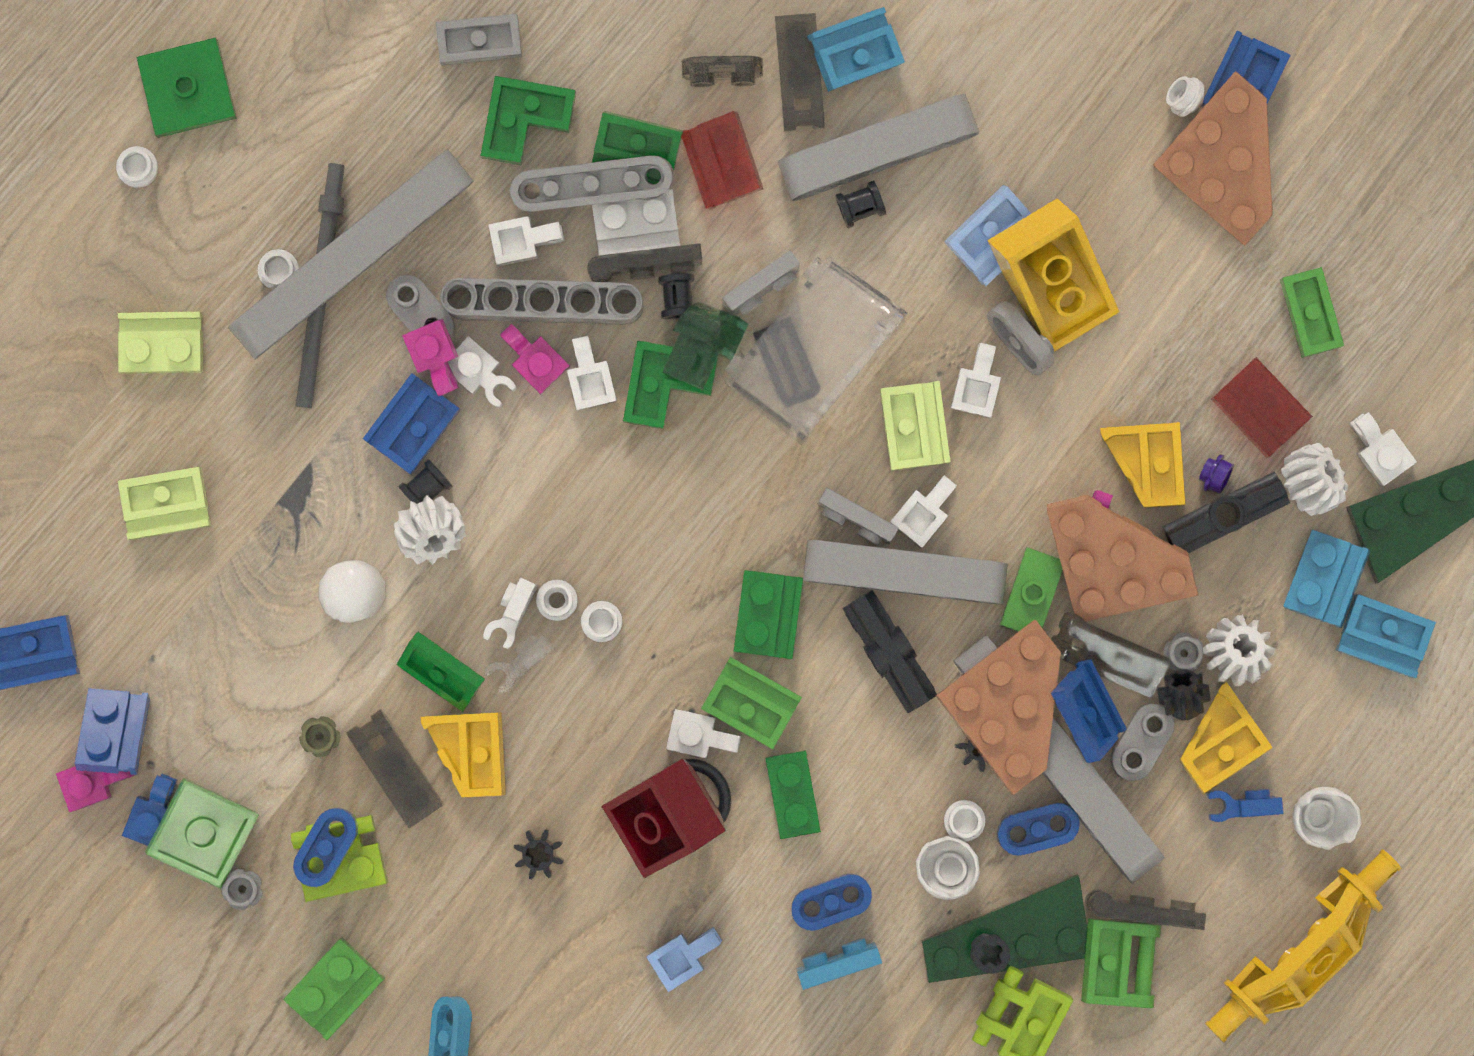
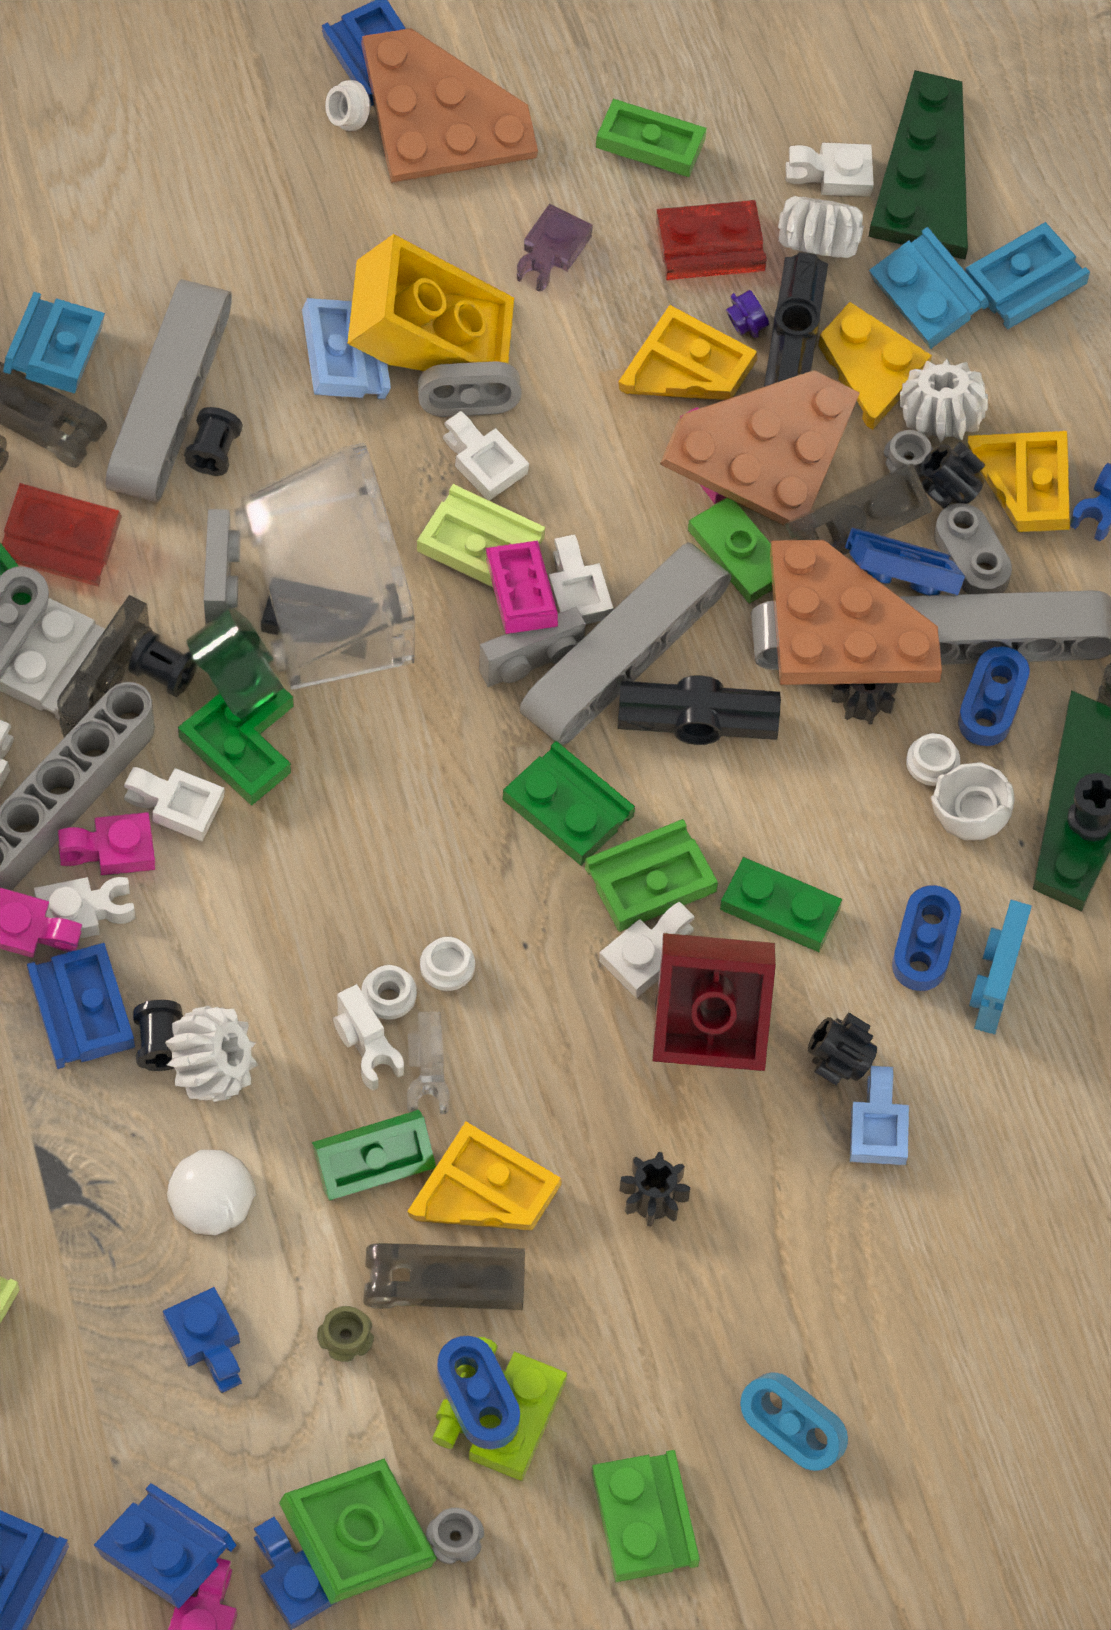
camera: 55 degrees left, 25 degrees down
(262, 652) = (206, 1333): none -> blue plate
(712, 904) = (842, 1048): none -> black gear
(887, 483) = (521, 587): none -> dark pink plate
(1183, 307) = (552, 242): none -> clear purple plate
(1242, 578) = (870, 360): none -> yellow wing

